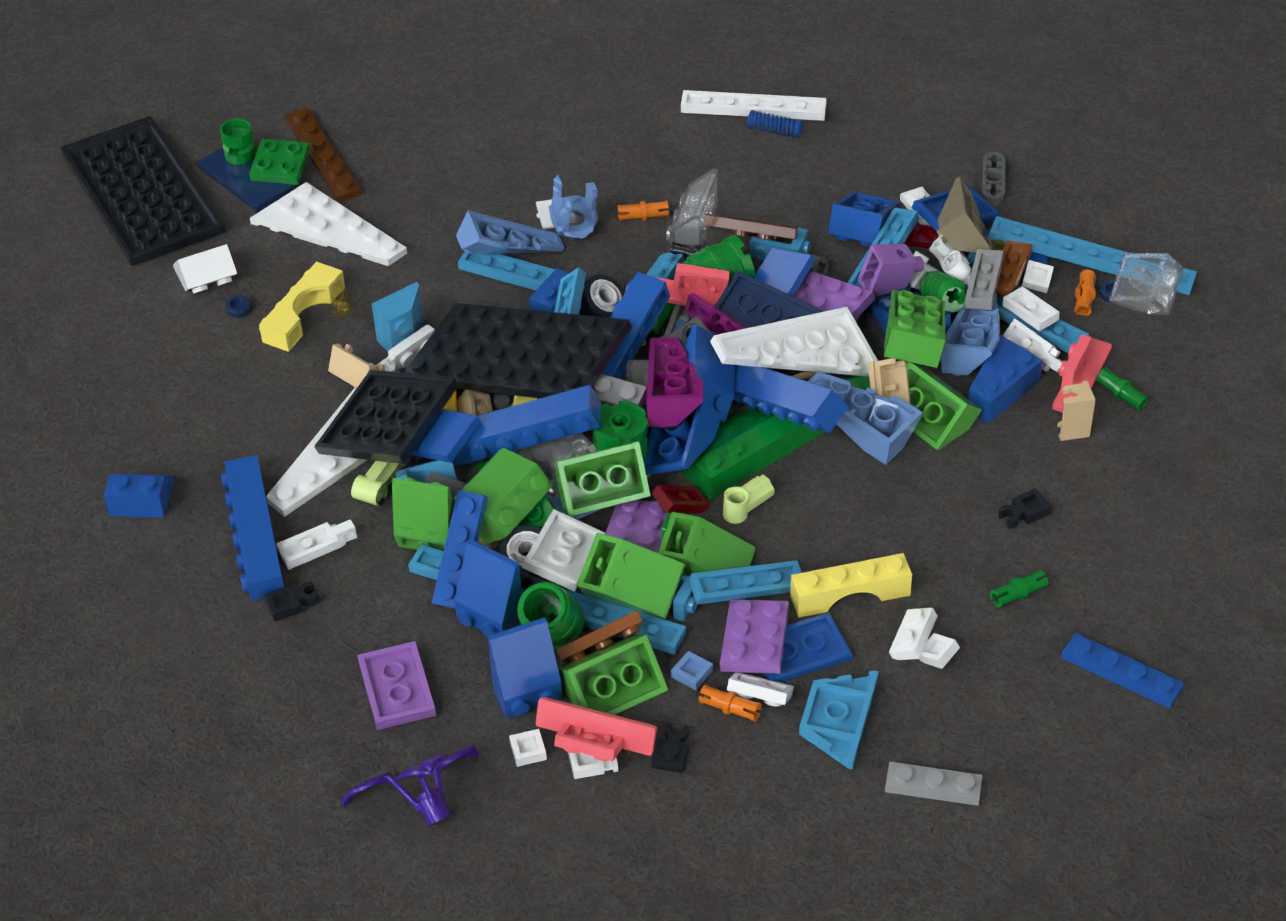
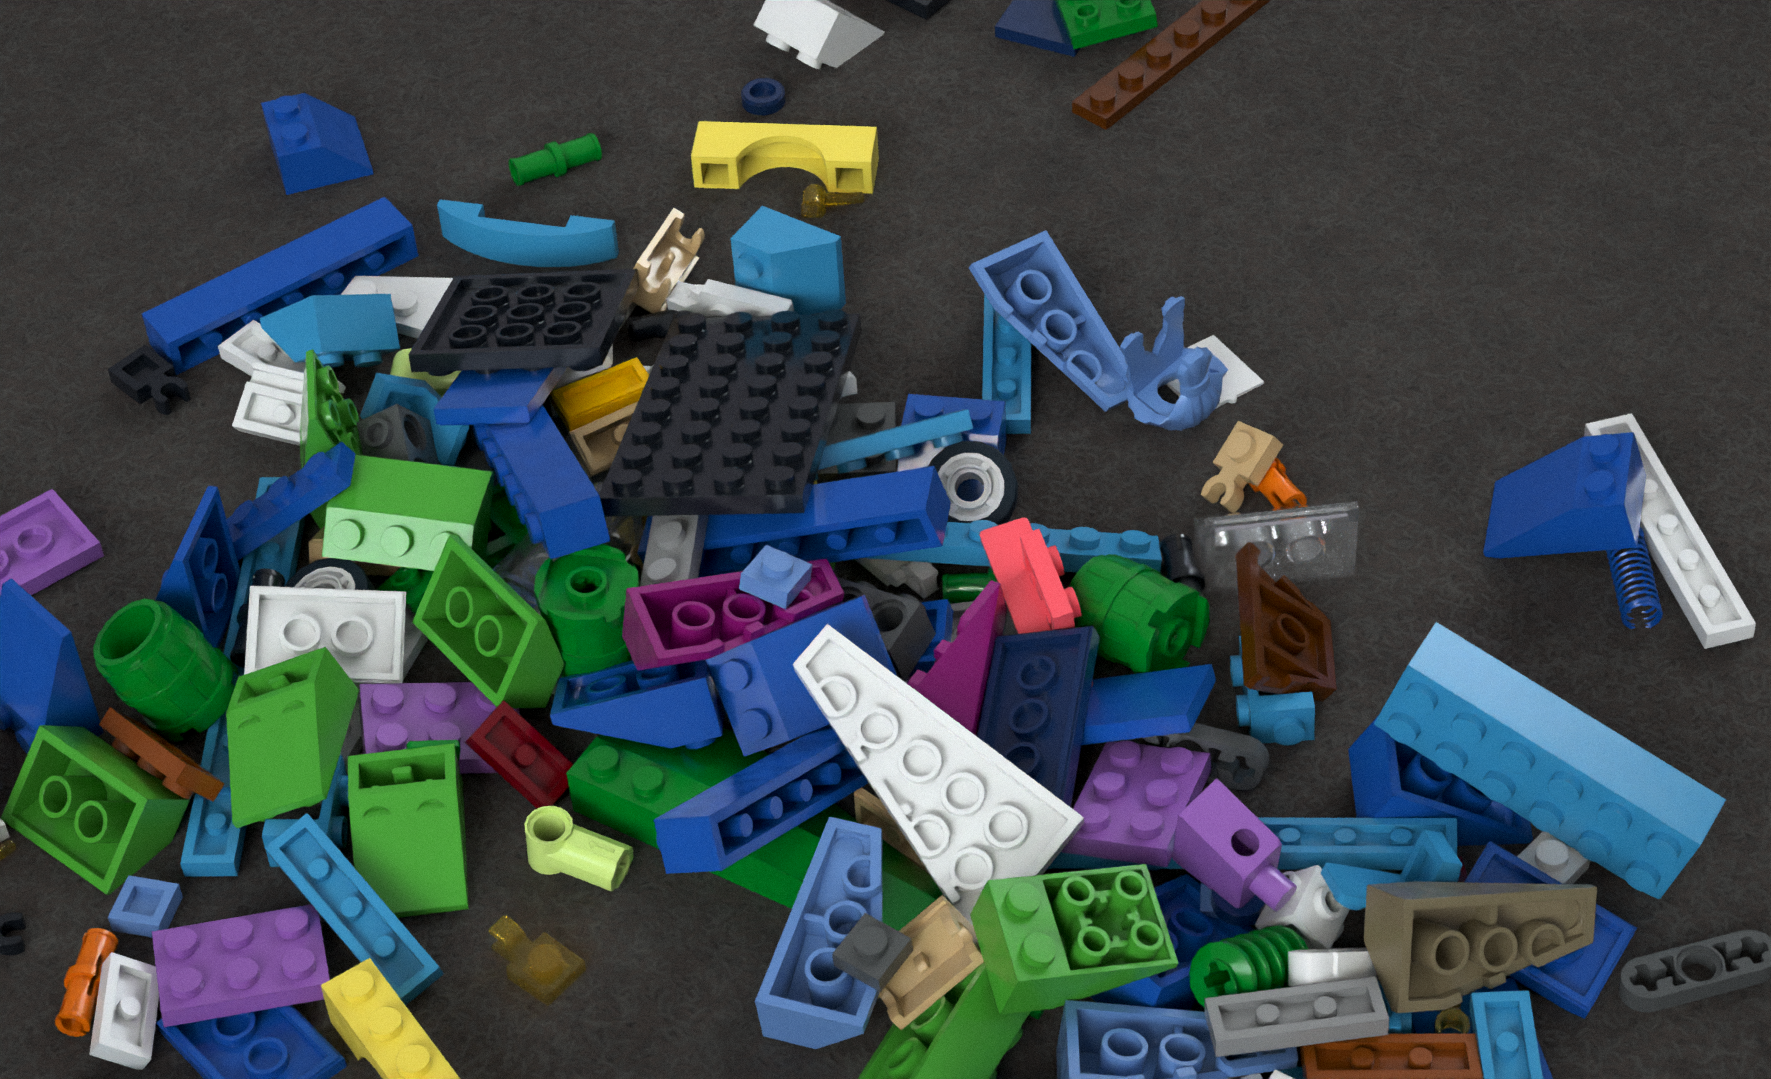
camera: 70 degrees right, 0 degrees up
(230, 396) = (555, 159): none -> green pin
(267, 439) = (528, 244): none -> dark azure slope
(320, 505) = (336, 329): none -> dark azure slope
(323, 221) = (1005, 115): white wing -> none
(359, 541) = (272, 403): none -> white plate
(637, 209) = (1241, 459): none -> tan plate
(662, 351) = (775, 576): none -> medium blue plate
(729, 121) = (1570, 500): none -> blue slope
(804, 530) = (538, 967): none -> clear yellow plate
(888, 393) = (872, 952): none -> dark grey plate
(890, 164) = (1549, 762): none -> dark azure brick
(925, 227) = (1429, 862): none -> dark azure bracket

